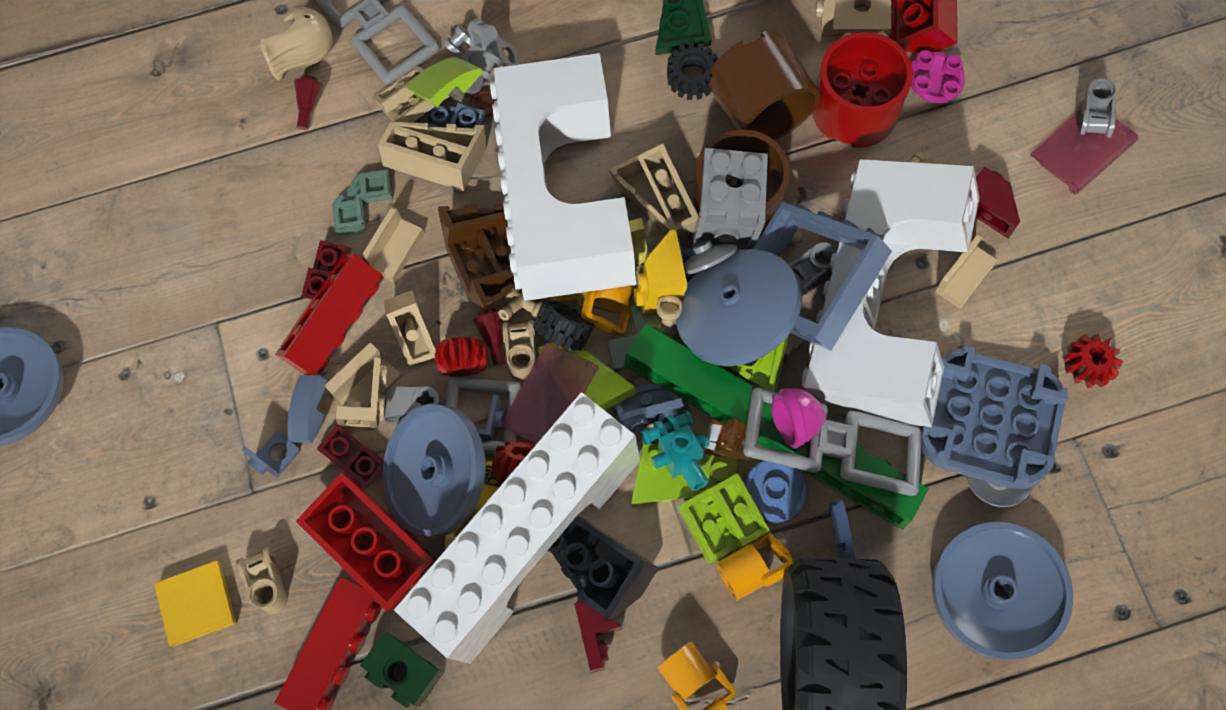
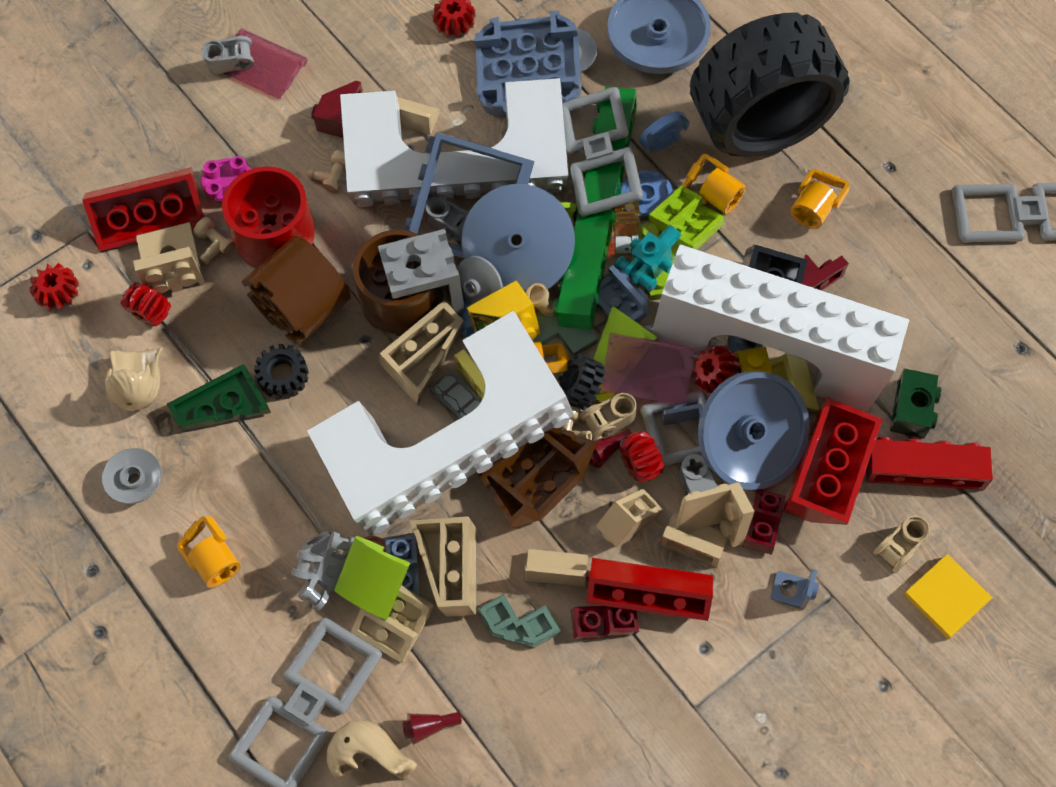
camera: 115 degrees left, 5 degrees down
(303, 416) = (744, 573): sand blue slope -> none
(797, 416) = (596, 171): dark pink hat -> none

